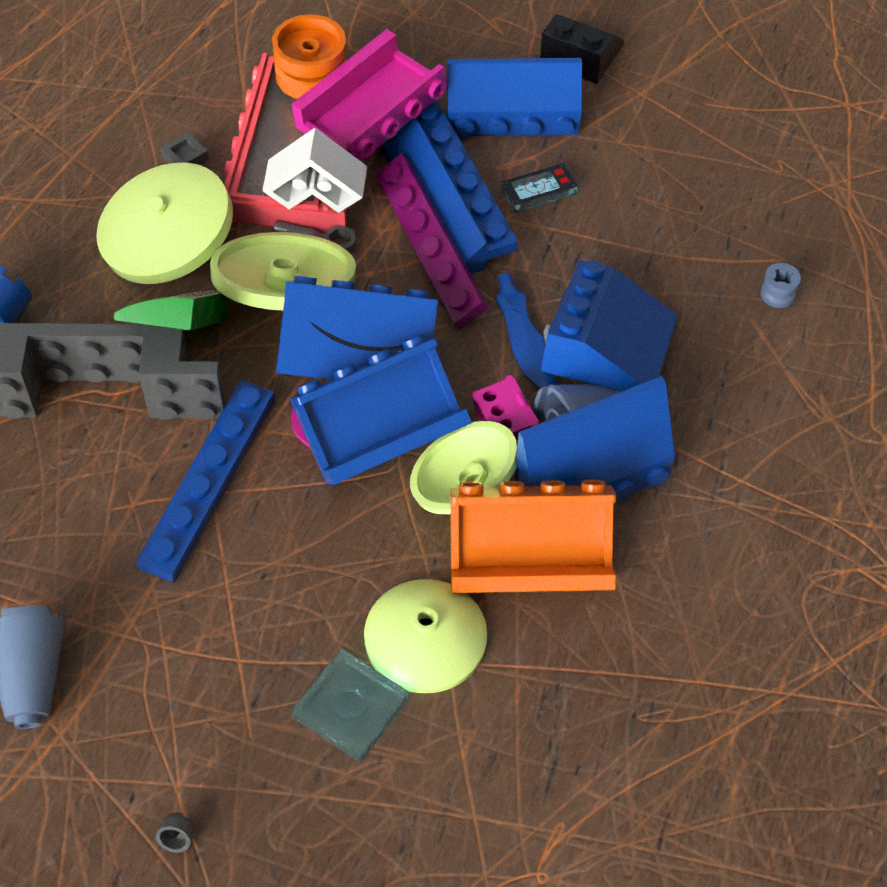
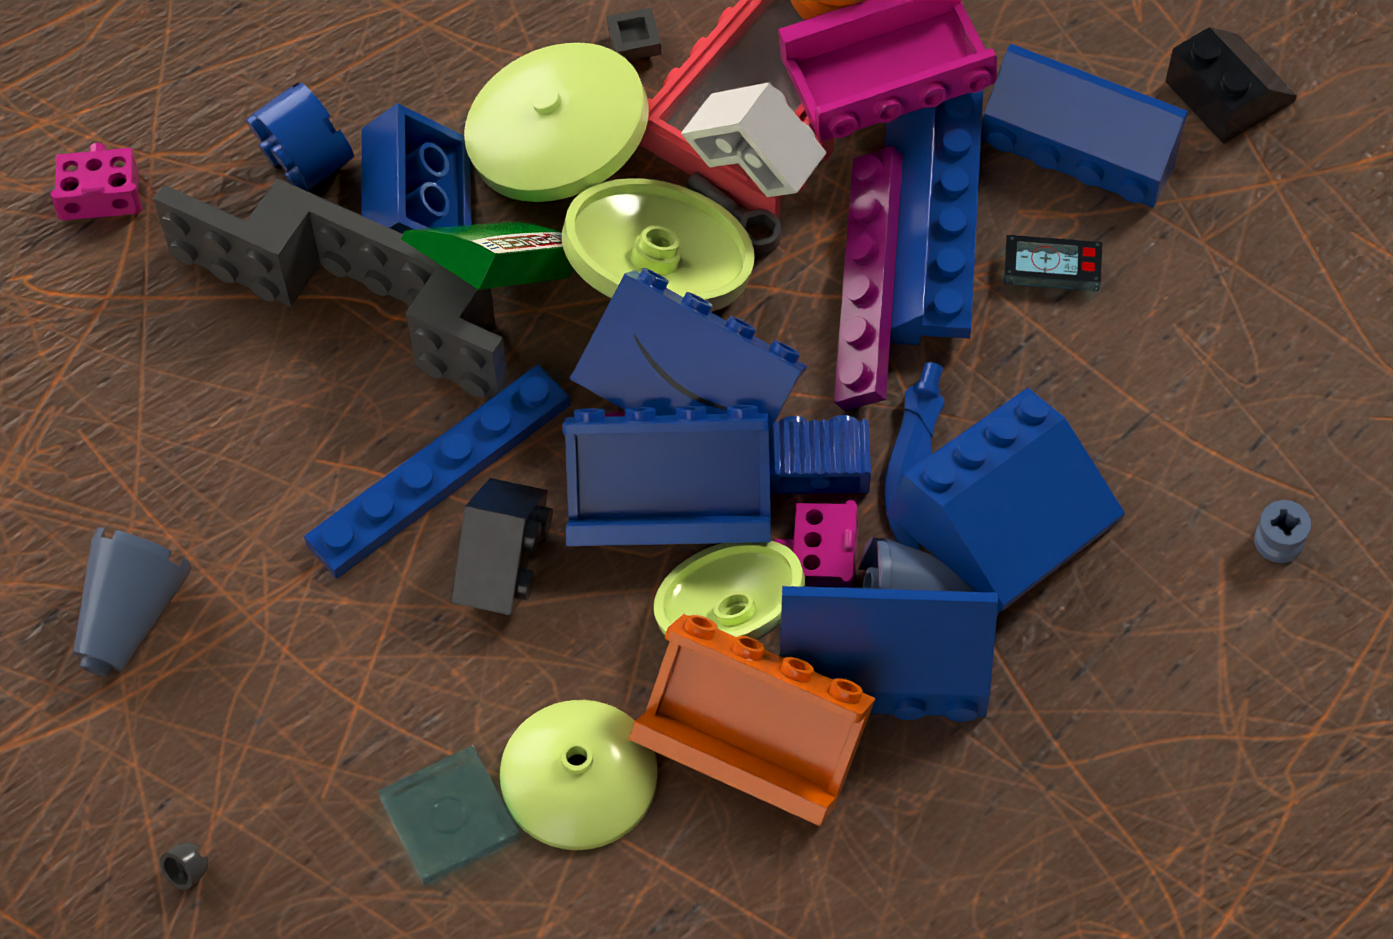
camera: 30 degrees right, 5 degrees up
(78, 288) = (414, 172): none -> blue slope
(287, 507) = (495, 543): none -> black brick
(473, 356) = (819, 456): none -> blue brick

